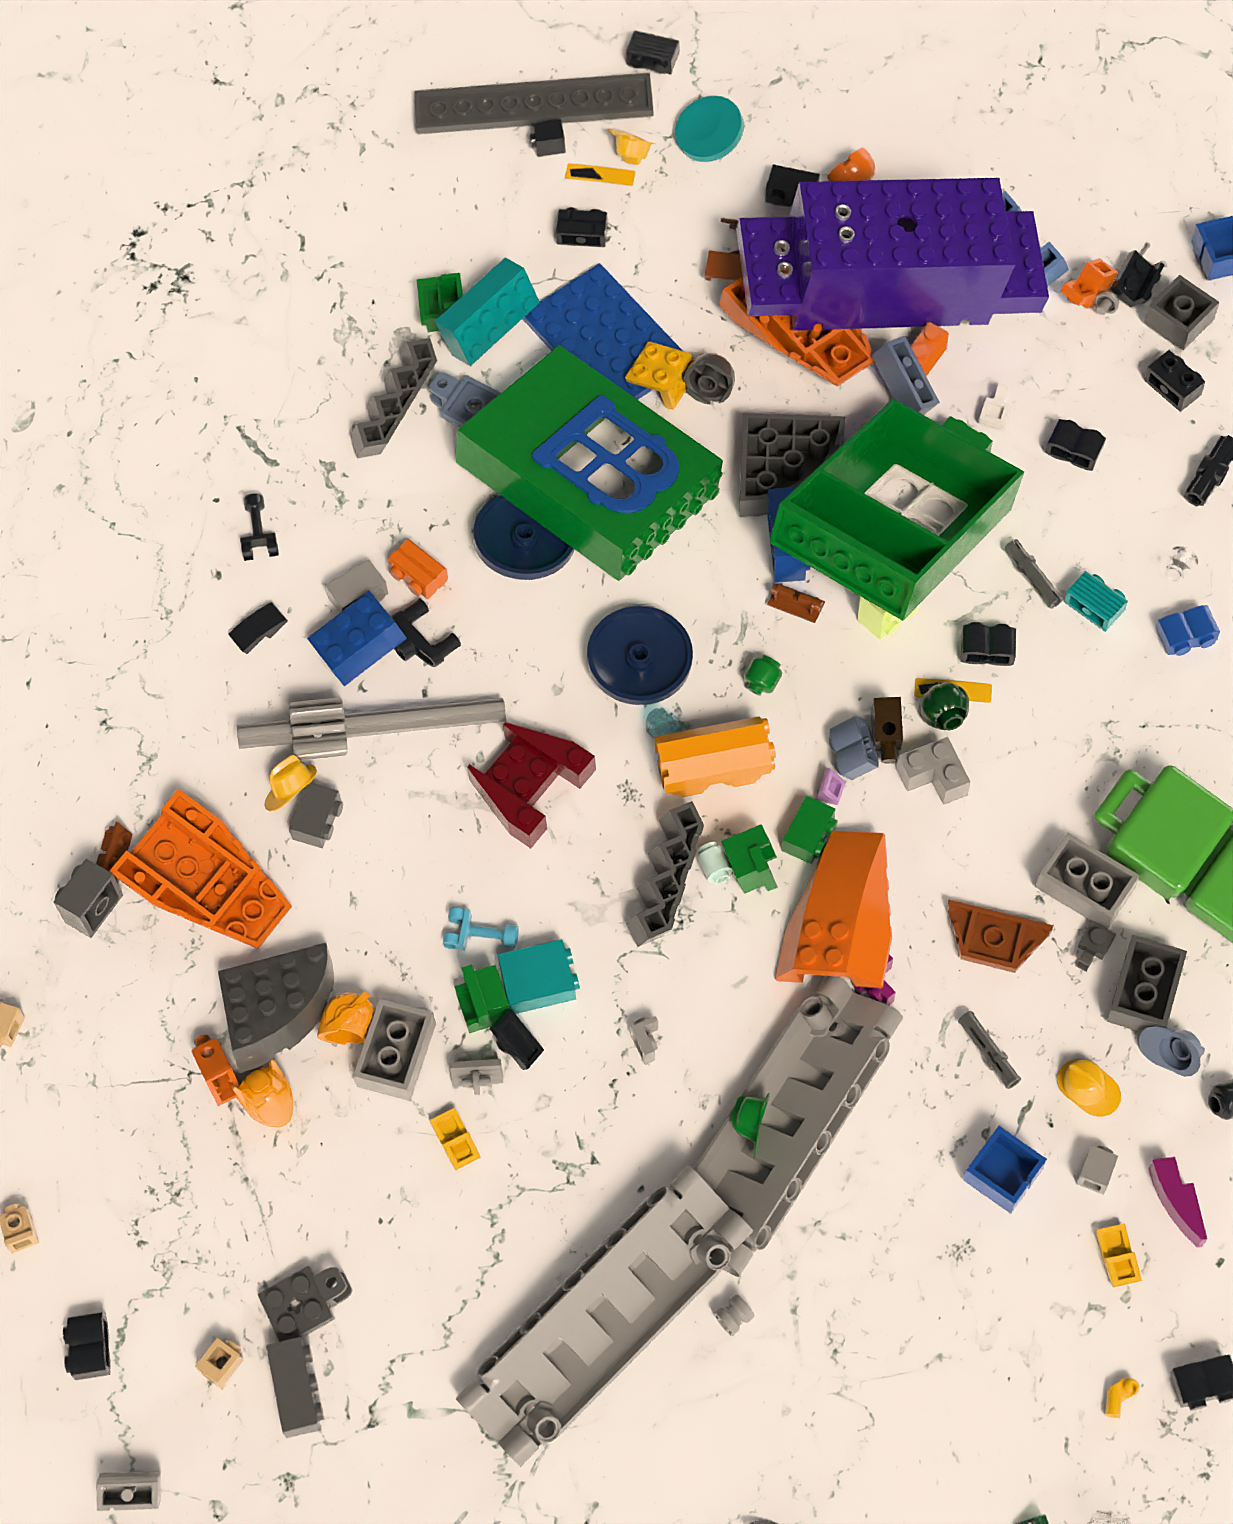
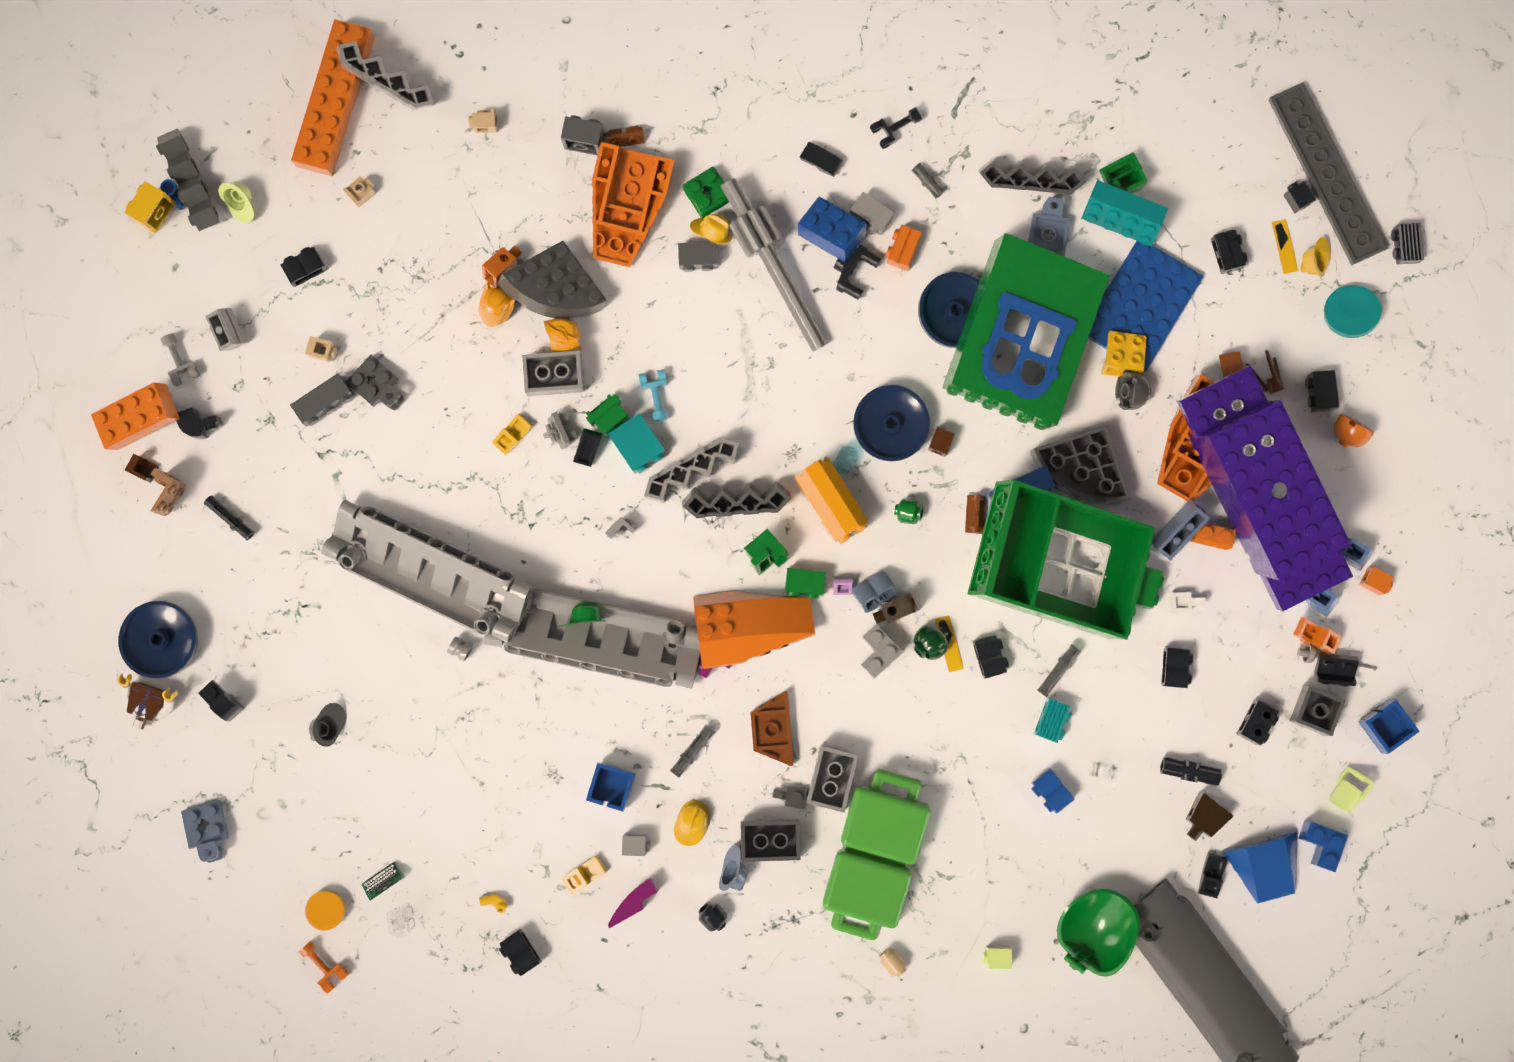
camera: 65 degrees right, 20 degrees up
(230, 790) = (705, 203): none -> green brick
(344, 516) = (928, 180): none -> dark grey pin
(524, 775) = (774, 379): dark red wedge -> none
(603, 931) = (699, 462): none -> light grey brick
(687, 608) = (941, 441): none -> reddish brown panel
(714, 863) = (757, 526): light aqua brick -> none
(1045, 204) = (1377, 581): none -> orange brick

